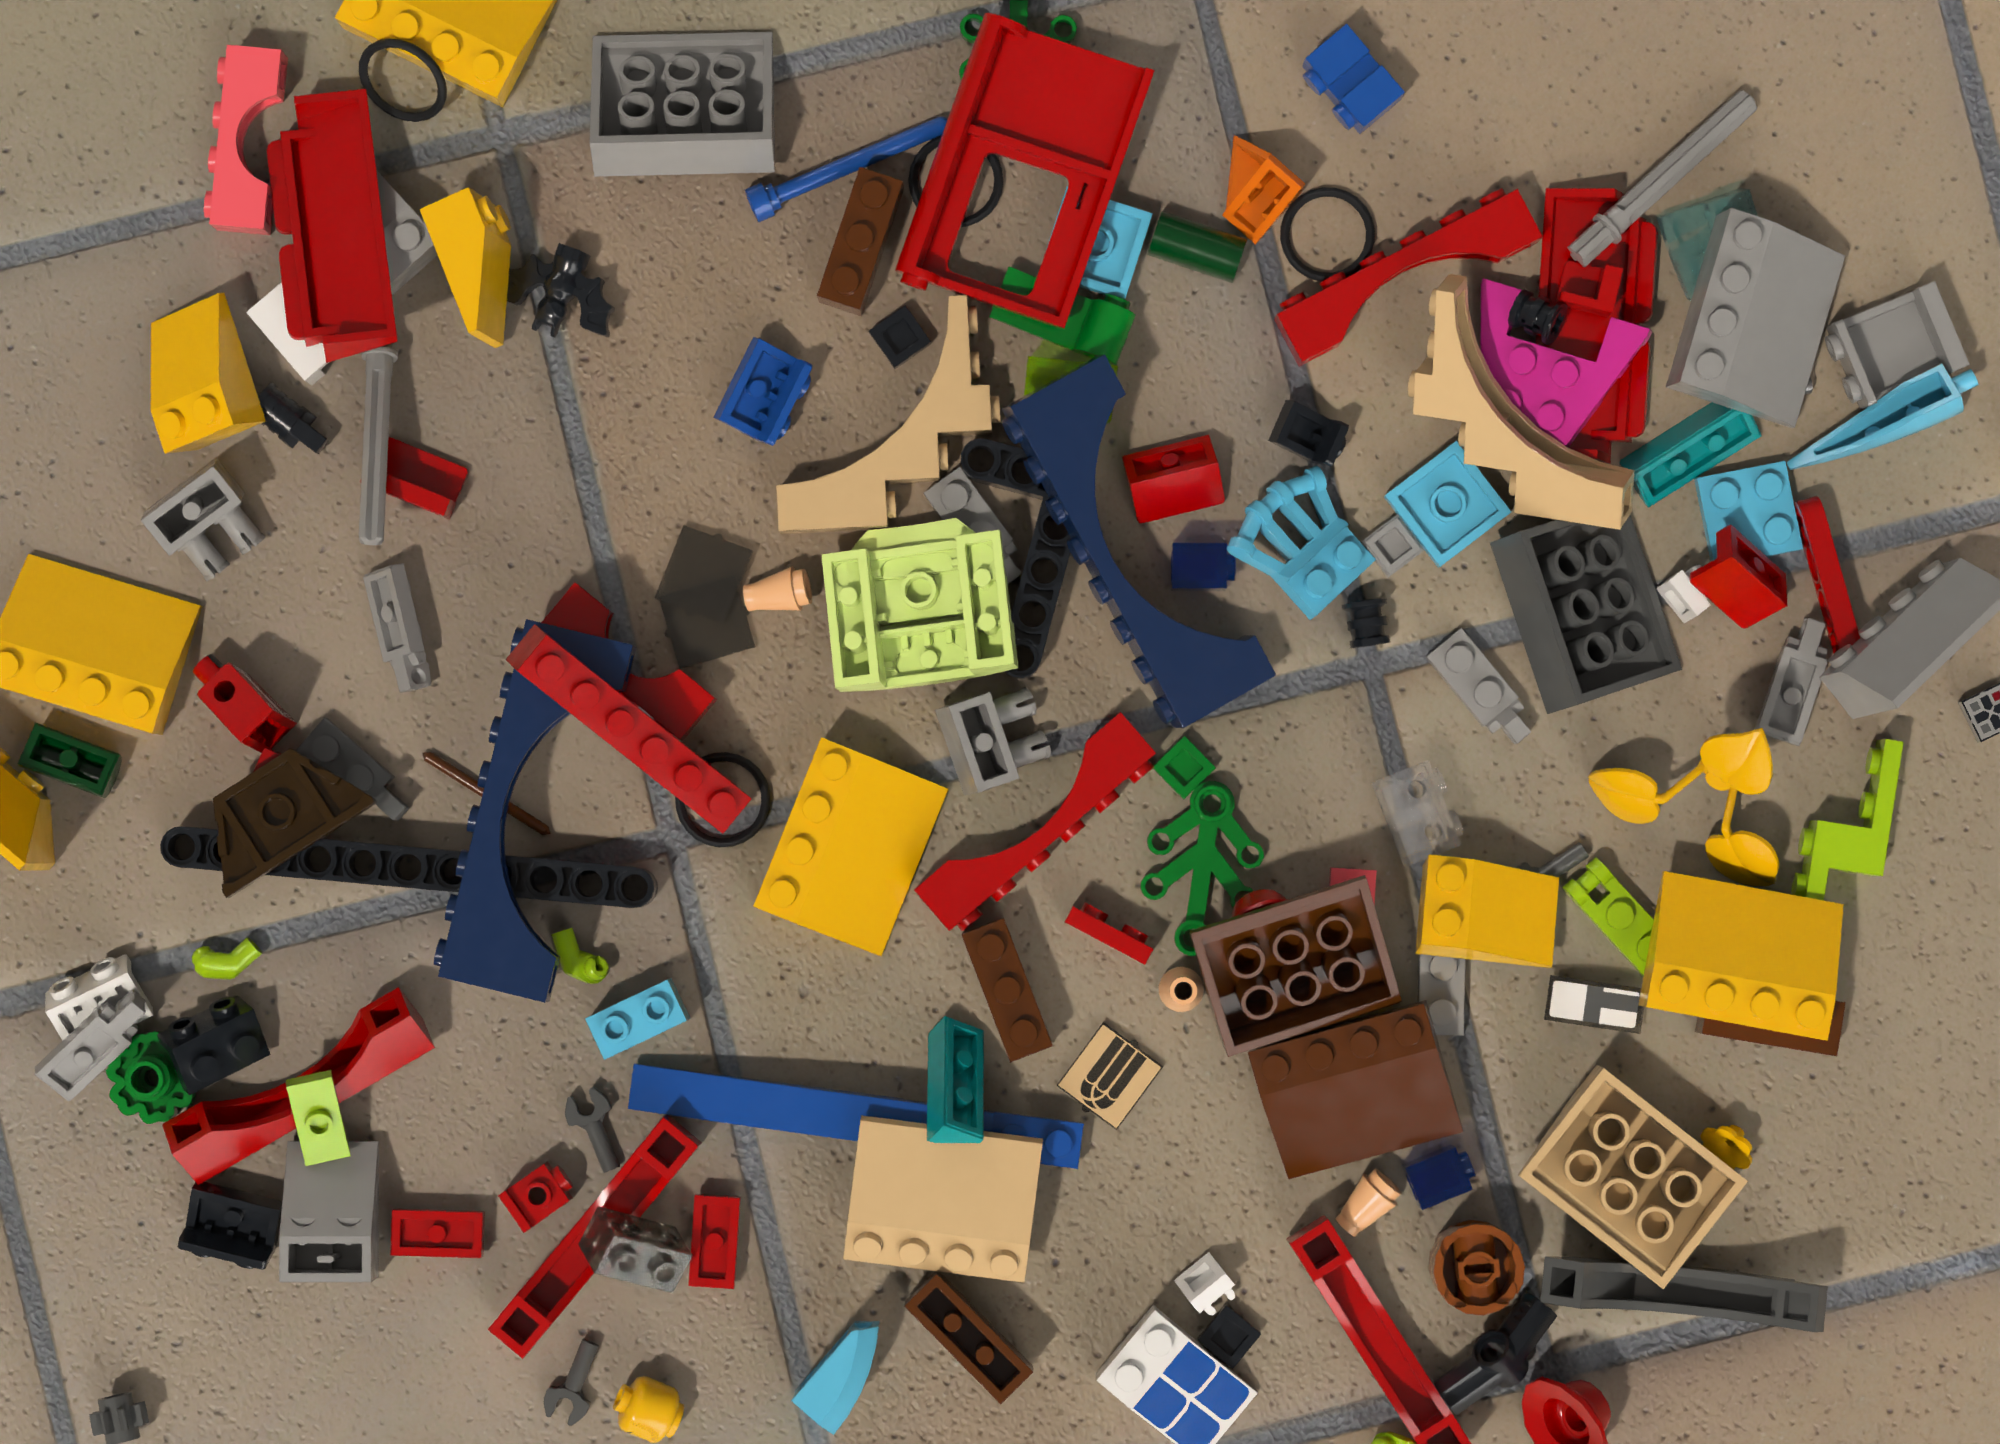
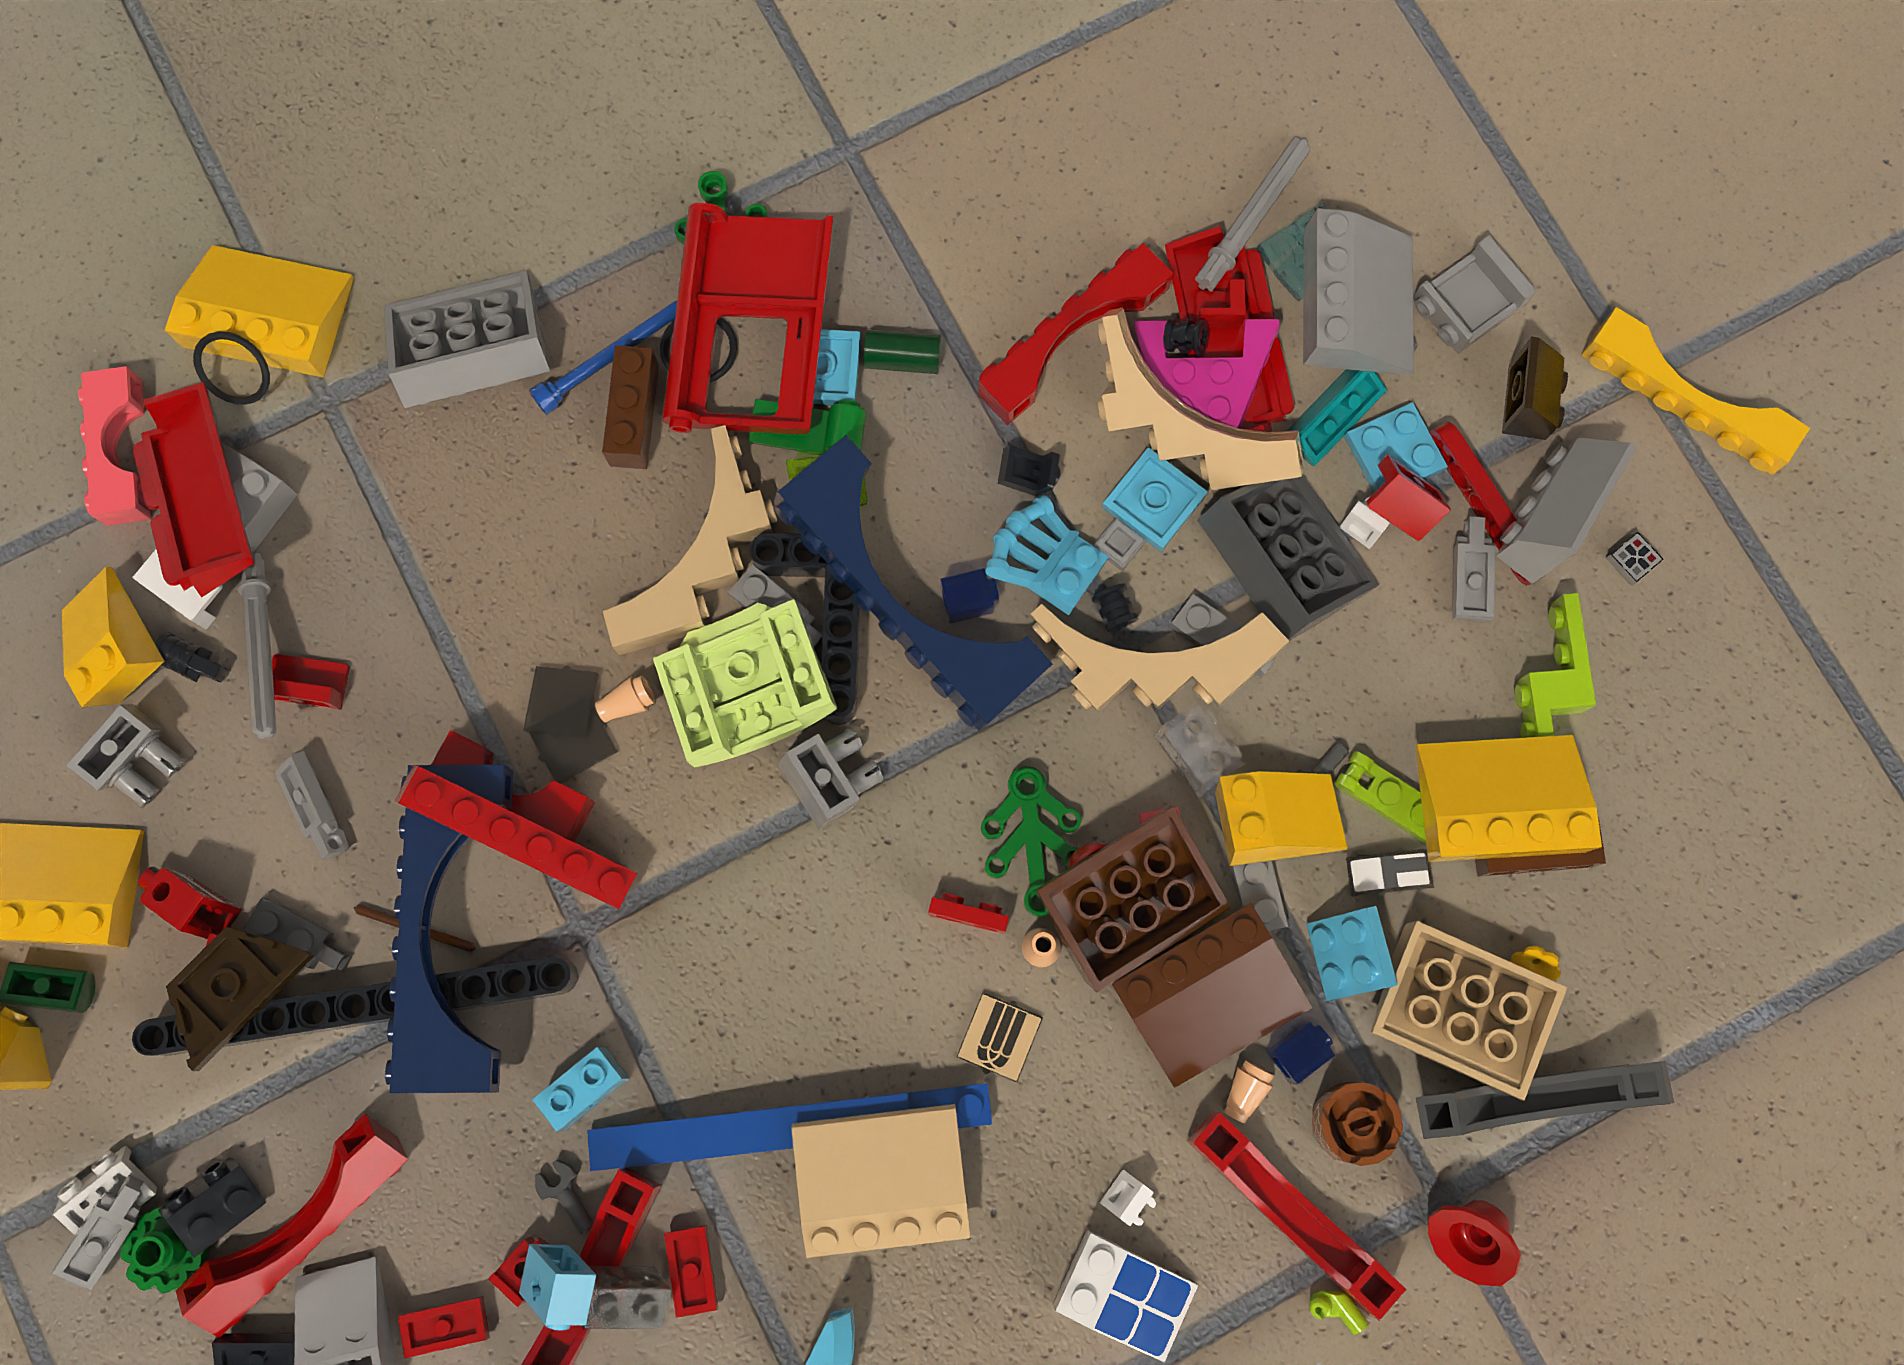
camera: 15 degrees left, 10 degrees down
(225, 965) = (212, 1133): lime arm -> none
(318, 1117) = (312, 1249): lime plate -> none
(475, 258) = (313, 488): yellow slope -> none
(562, 283) = (395, 497): black animal -> none
(575, 1221) = (557, 1285): none -> medium azure brick
(576, 962) = (519, 1053): lime arm -> none
(754, 828) = (649, 900): black tyre -> none
(764, 392) = (578, 543): blue bracket -> none
(850, 847) = (732, 895): yellow slope -> none
(900, 337) = (681, 476): black tile -> none
(955, 1083) = (868, 1076): teal slope -> none
(969, 1336) = (934, 1300): reddish brown brick -> none
(1007, 990) = (893, 983): reddish brown brick -> none
(1107, 761) = (837, 902): red arch -> none
(1174, 479) = (930, 533): red panel -> none
(1183, 767) = (996, 762): green tile -> none
(1229, 1336) = (1160, 1240): black tile -> none
(1258, 189) = (941, 294): orange slope -> none
(1317, 193) = (986, 291): black tyre -> none
(1336, 695) = (1215, 667): none -> tan arch
(1351, 80) = (991, 197): blue brick -> none
(1497, 1355) = (1406, 1179): black piece -> none
(1522, 1084) = (1351, 953): none -> medium azure plate
(1730, 763) = (1447, 634): yellow plant -> none
(1900, 413) = (1492, 344): medium azure piece -> none
(1931, 487) = (1535, 391): none -> dark brown slope

